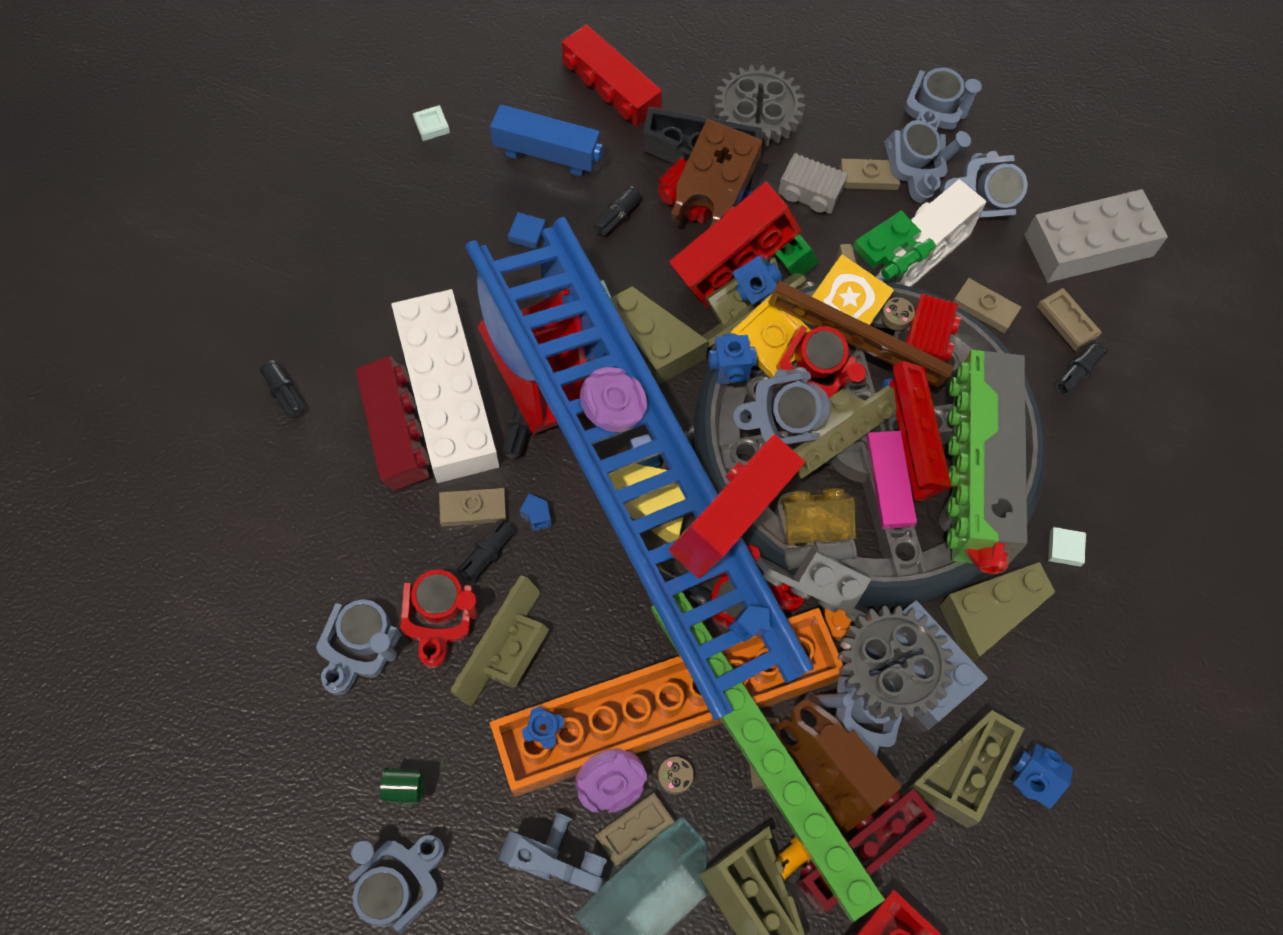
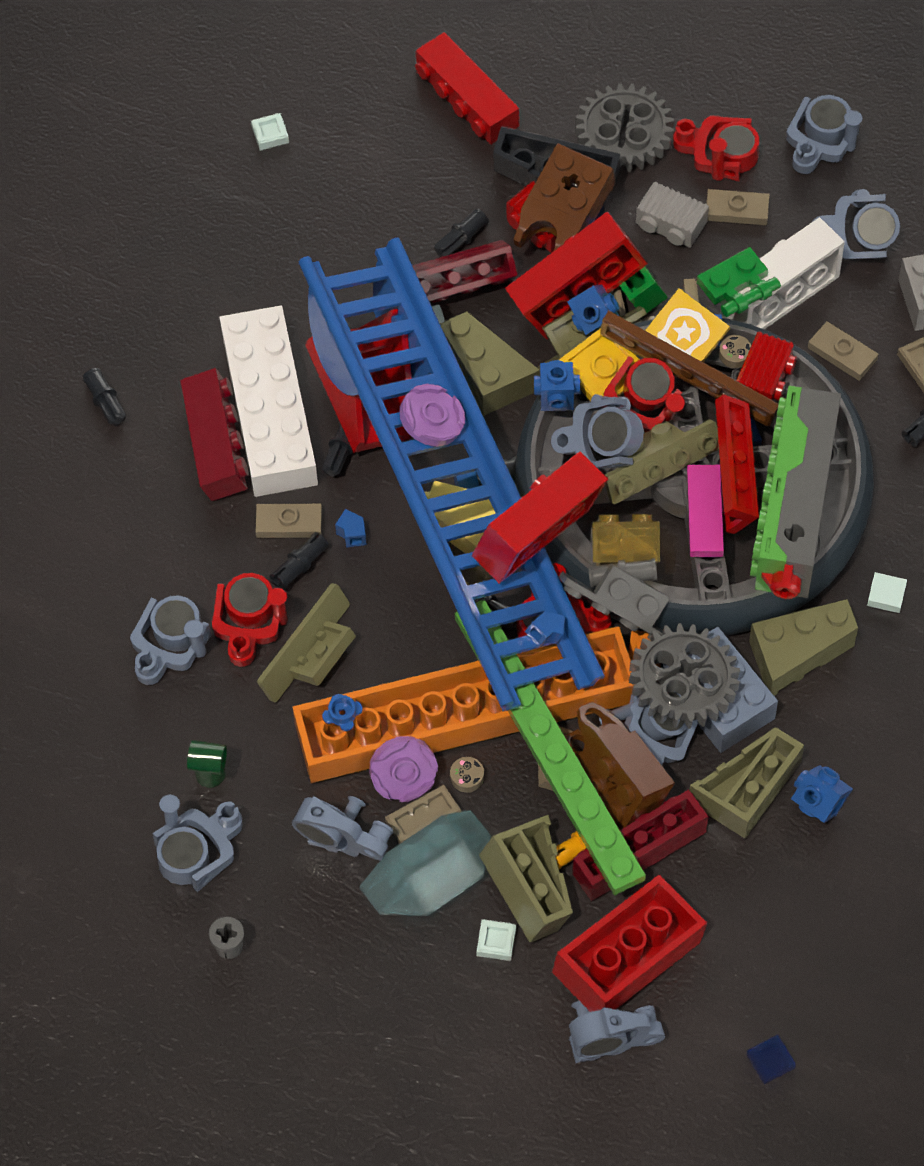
camera: 10 degrees right, 5 degrees down
(526, 230) = (362, 249): blue tile -> none
(546, 139) = (390, 155): blue brick -> none
(629, 245) = (466, 270): none -> dark red brick
(860, 119) = (733, 146): none -> red piece
(914, 149) = (787, 183): sand blue piece -> none

